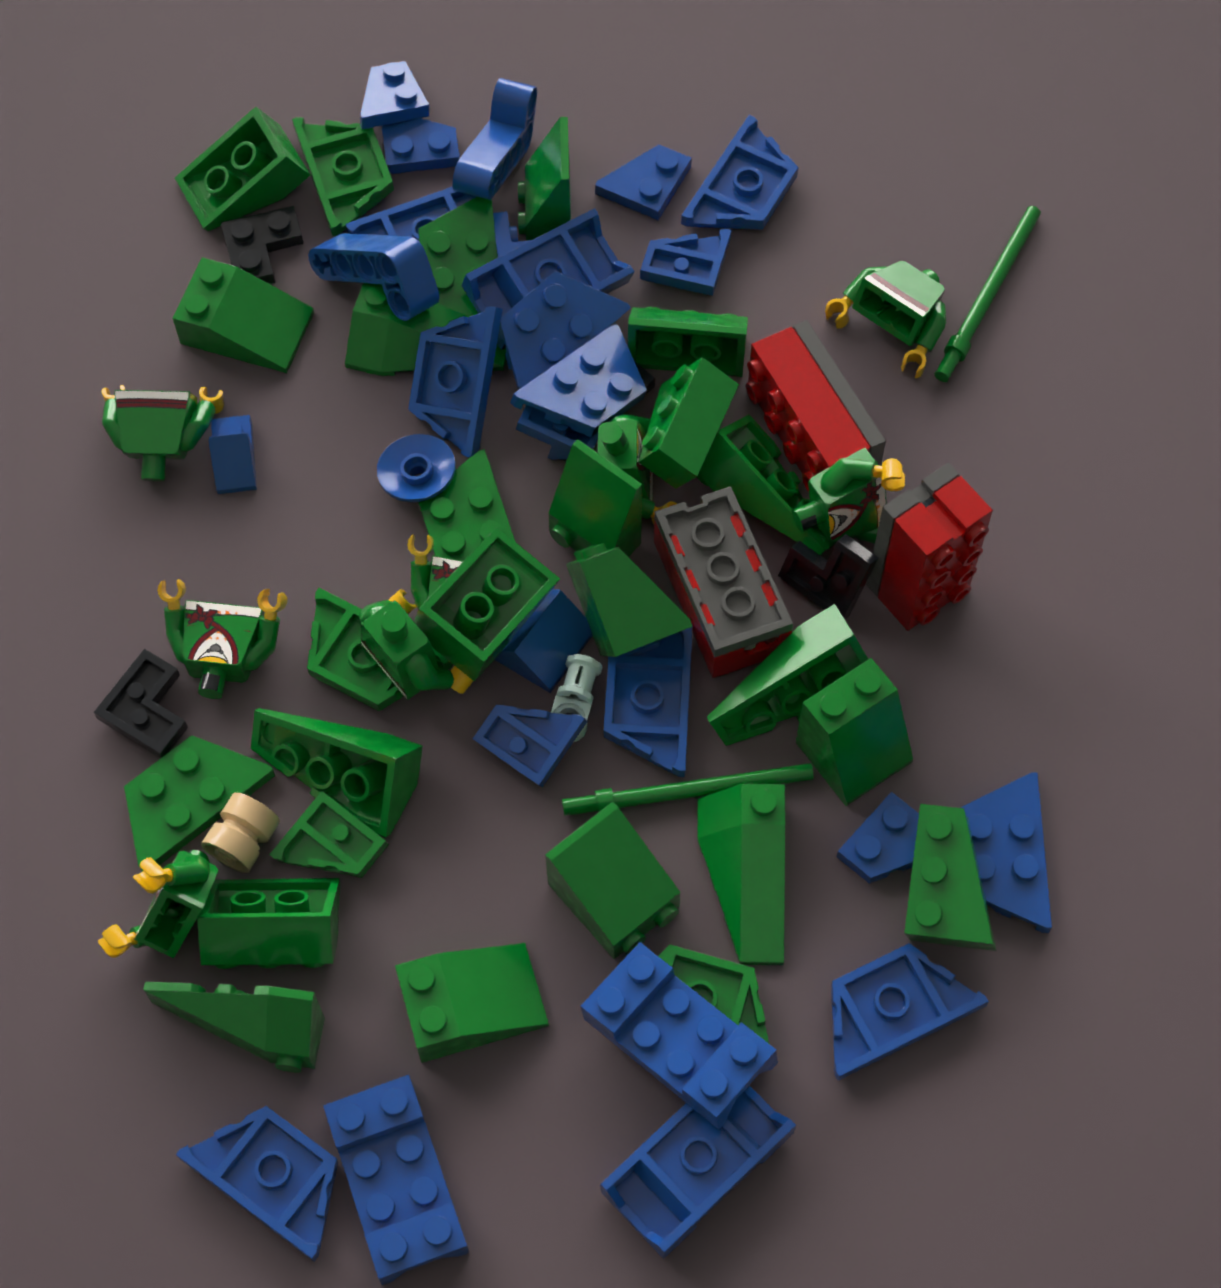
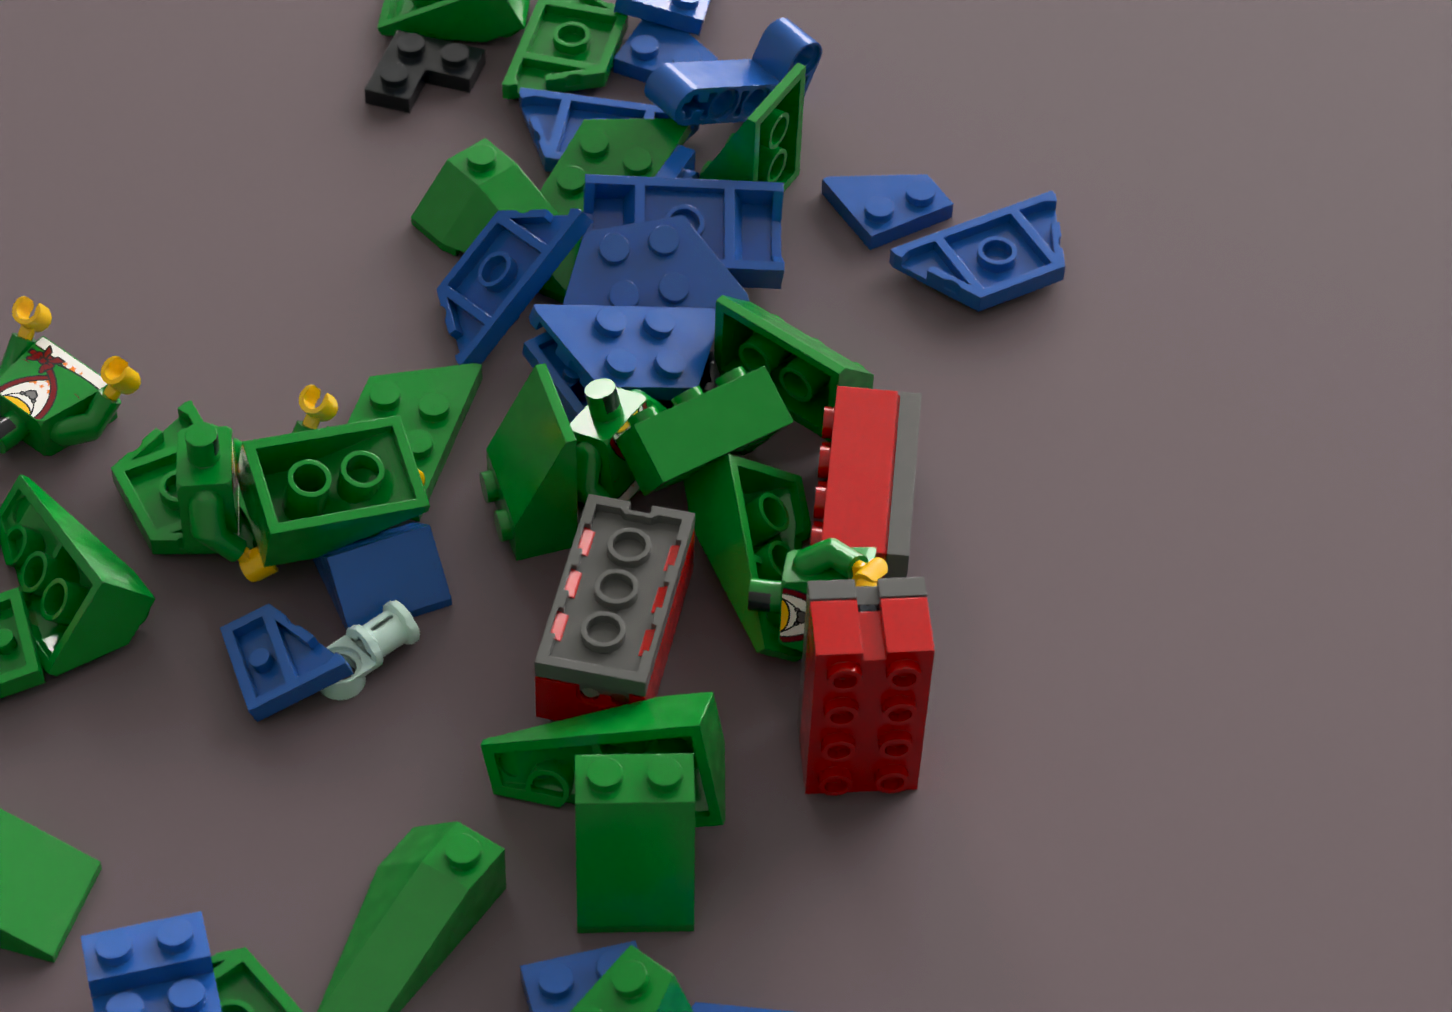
camera: 30 degrees right, 15 degrees down
(157, 424) = (169, 172): green torso -> none
(233, 454) = (220, 240): blue slope -> none
(241, 317) = (339, 119): green slope -> none
(380, 259) = (516, 136): blue beam -> none
(413, 456) = (391, 343): blue dish -> none
(612, 881) = (235, 839): green slope -> none
(622, 601) = (478, 568): green slope -> none
(651, 701) = (445, 698): blue wing -> none
(684, 789) = (312, 772): green bar -> none
(686, 261) = (861, 298): blue wing -> none
(830, 581) = (749, 677): black plate -> none
(901, 303) = (1069, 452): green torso -> none
(959, 344) = (1111, 533): green bar -> none

